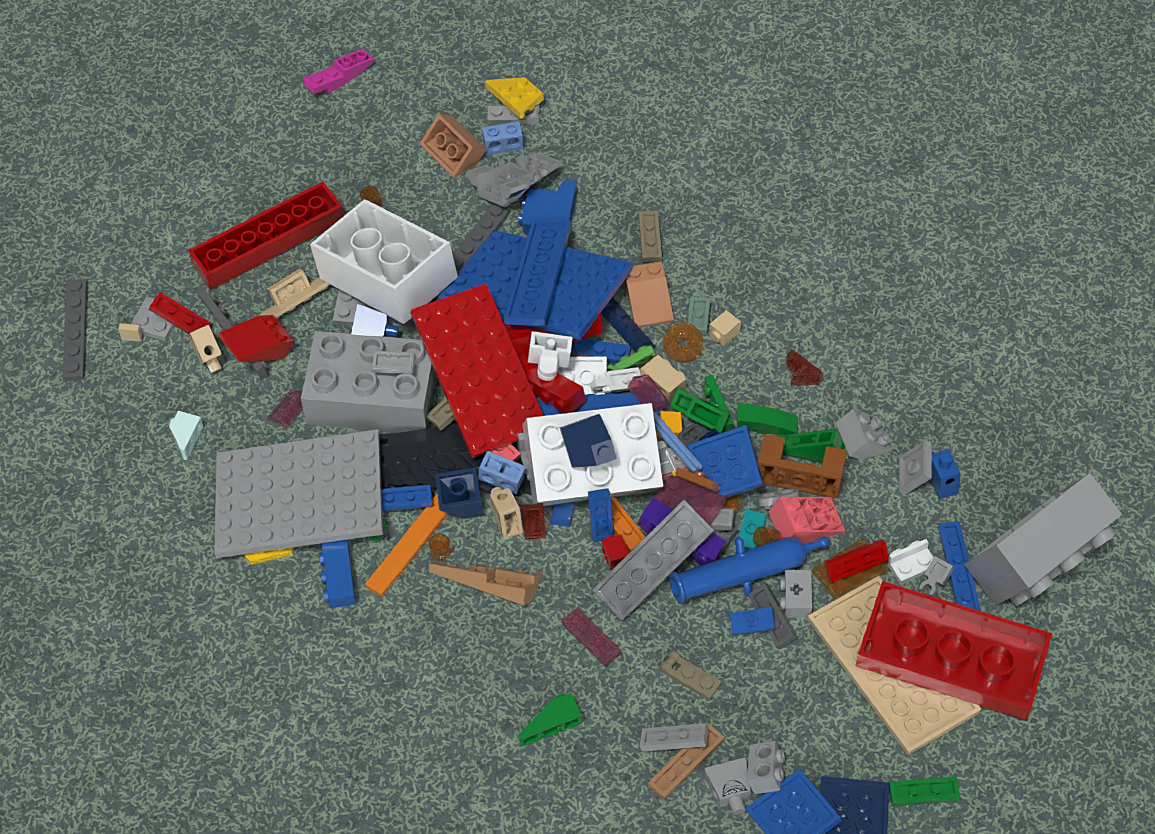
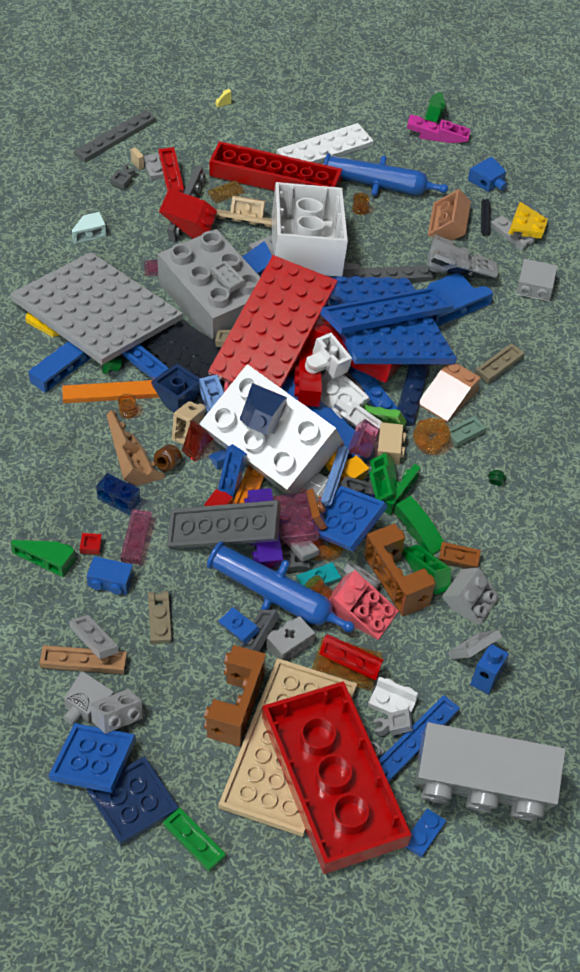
camera: 45 degrees right, 5 degrees down
(121, 206) = (224, 99): none -> light yellow tile
(142, 361) = (122, 178): none -> dark grey plate
(203, 339) = (157, 192): tan torso -> none
(244, 291) = (225, 191): none -> clear orange tile
(266, 171) = (335, 142): none -> white plate
(314, 53) = (435, 107): none -> green slope
(354, 157) = (384, 176): none -> blue piece
(433, 78) = (488, 175): none -> blue torso
(470, 114) = (485, 217): none -> black axle
(502, 138) = (484, 237): medium blue brick -> none
(529, 555) = (167, 457): none -> reddish brown head
(535, 620) = (118, 493): none -> clear blue brick
(568, 677) = (90, 543): none -> red plate
(587, 139) = (536, 279): none -> light grey piece
(617, 684) = (110, 575): none -> blue brick
(724, 328) = (470, 452): tan brick -> none
(765, 329) = (497, 477): none -> dark green plate
(804, 372) = (484, 523): clear red slope -> none
(818, 414) = (459, 555): none -> dark orange plate
(846, 685) = (229, 721): none -> dark orange plate
(1040, 618) = (425, 832): none -> blue plate

